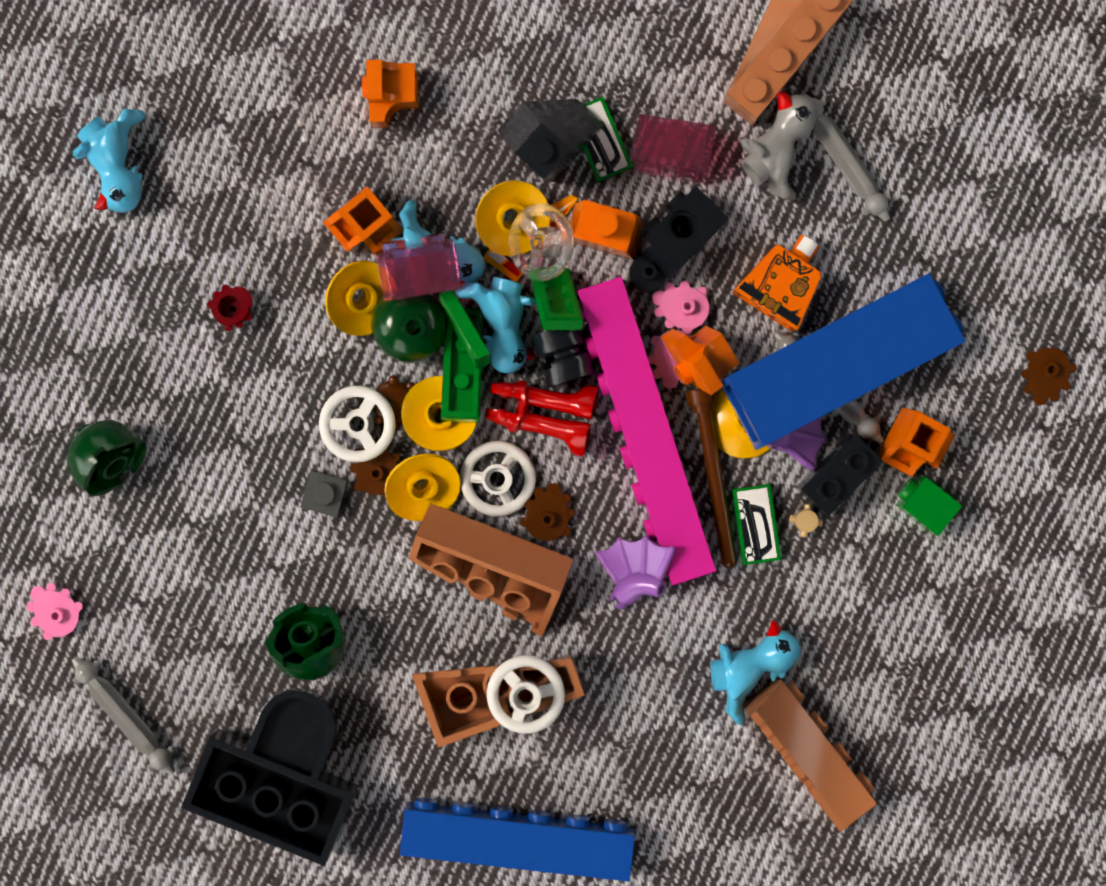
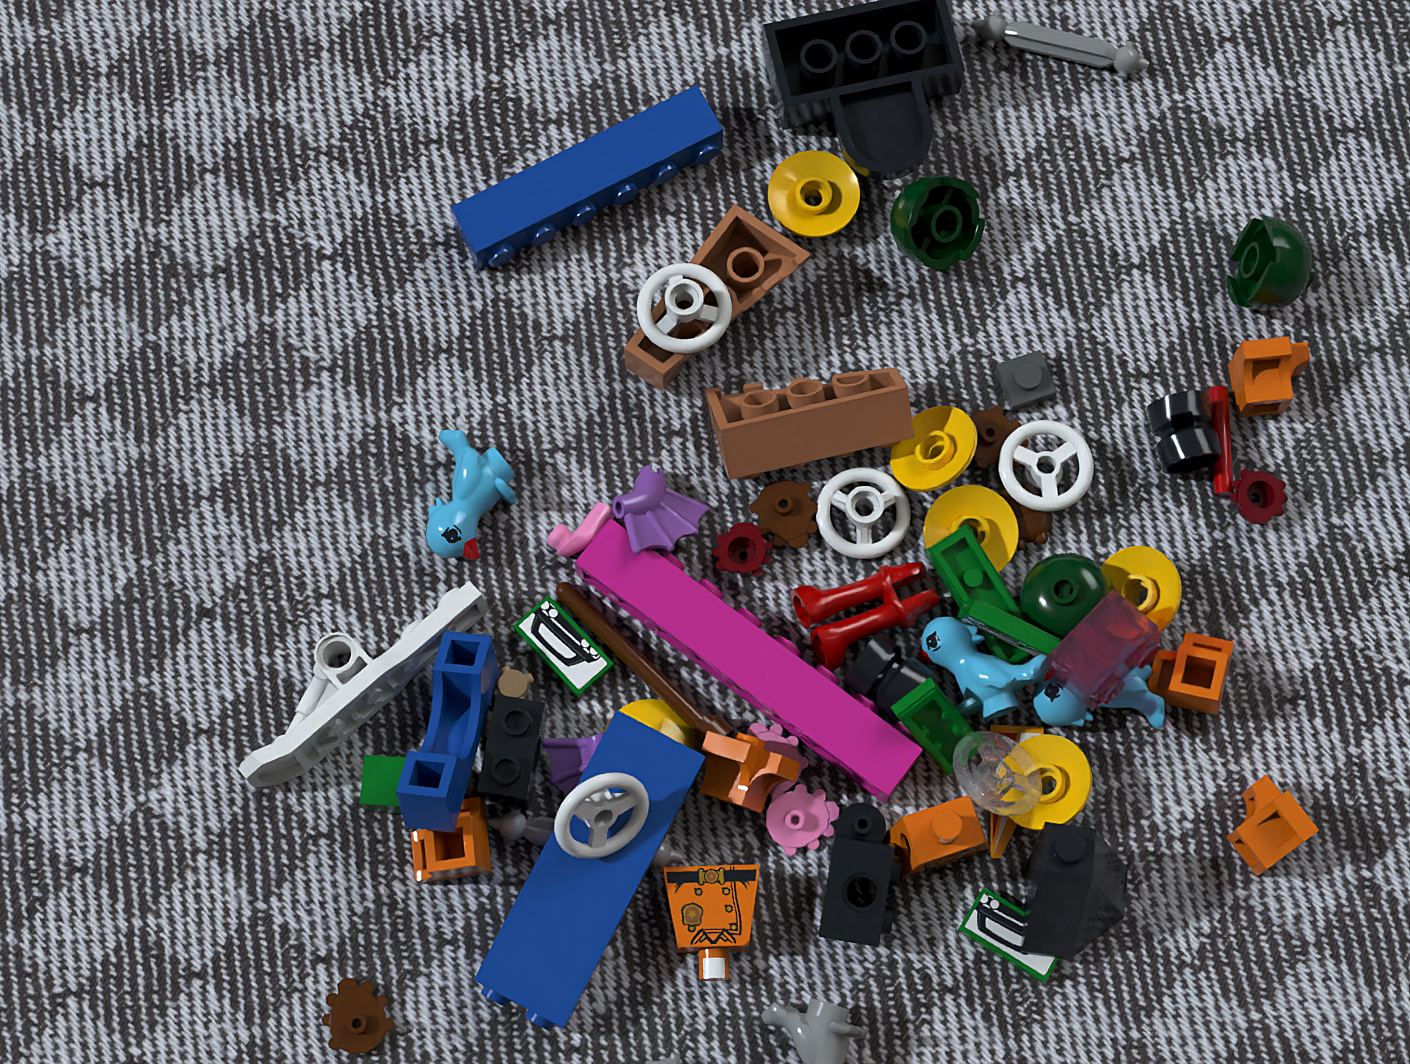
camera: 145 degrees right, 15 degrees down
(54, 611) = (1201, 95): bright pink piece -> none
(165, 384) = (1263, 375): none -> orange brick
(225, 363) = (1221, 423): none -> red piece
(252, 369) = (1187, 447): none -> black wheel
(359, 735) = (816, 175): none -> yellow dish
(596, 515) = (742, 540): none -> dark red animal
(673, 147) = (931, 977): clear pink brick -> none
(693, 588) = (570, 543): none -> bright pink arm
(809, 752) = (351, 452): nougat wedge -> none
(821, 389) = (599, 810): none -> white piece
(903, 486) = (439, 773): none -> blue arch
(923, 585) = (349, 695): none -> white piece

